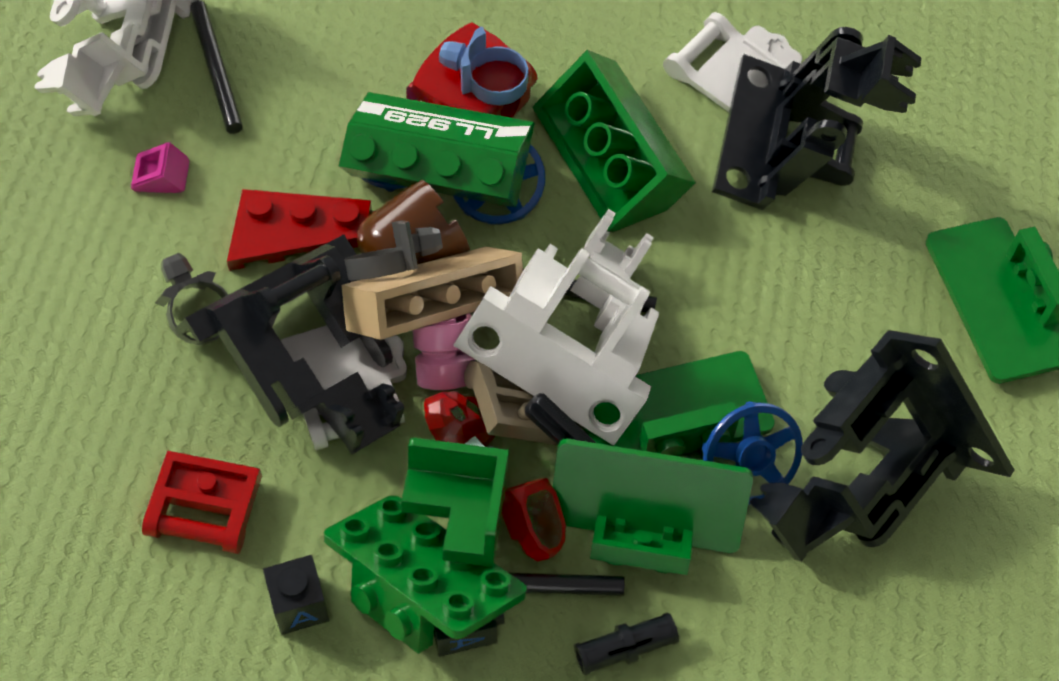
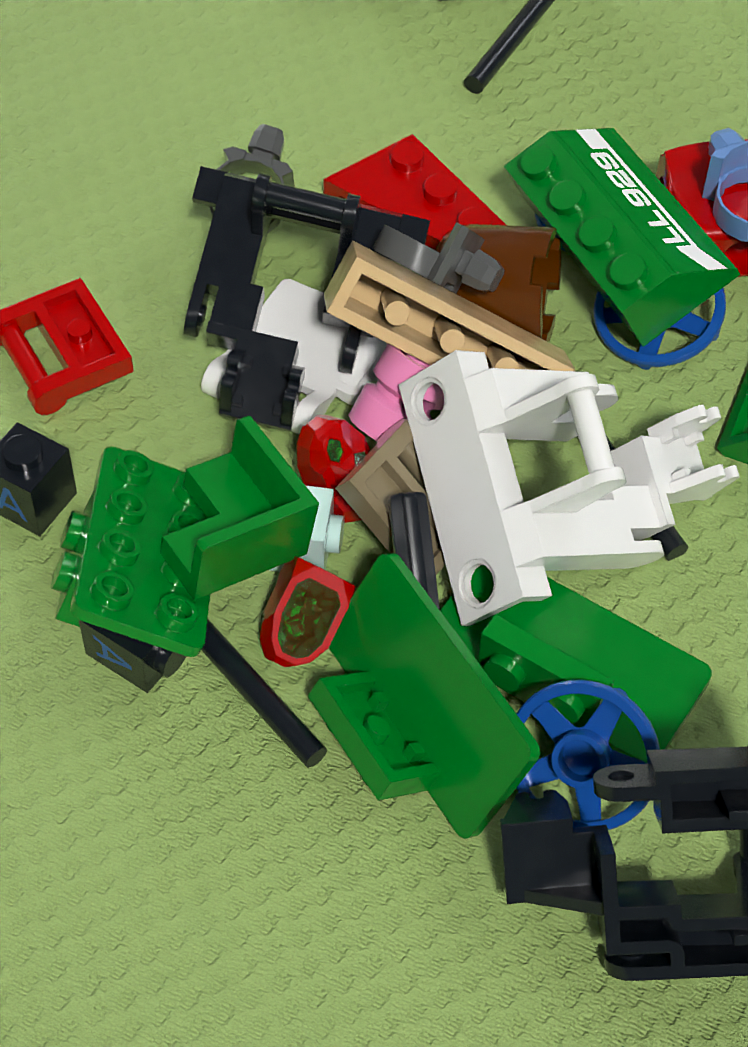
camera: 50 degrees right, 5 degrees down
(160, 170) = (369, 70): dark pink slope -> none
(626, 643) = (250, 805): black pin -> none

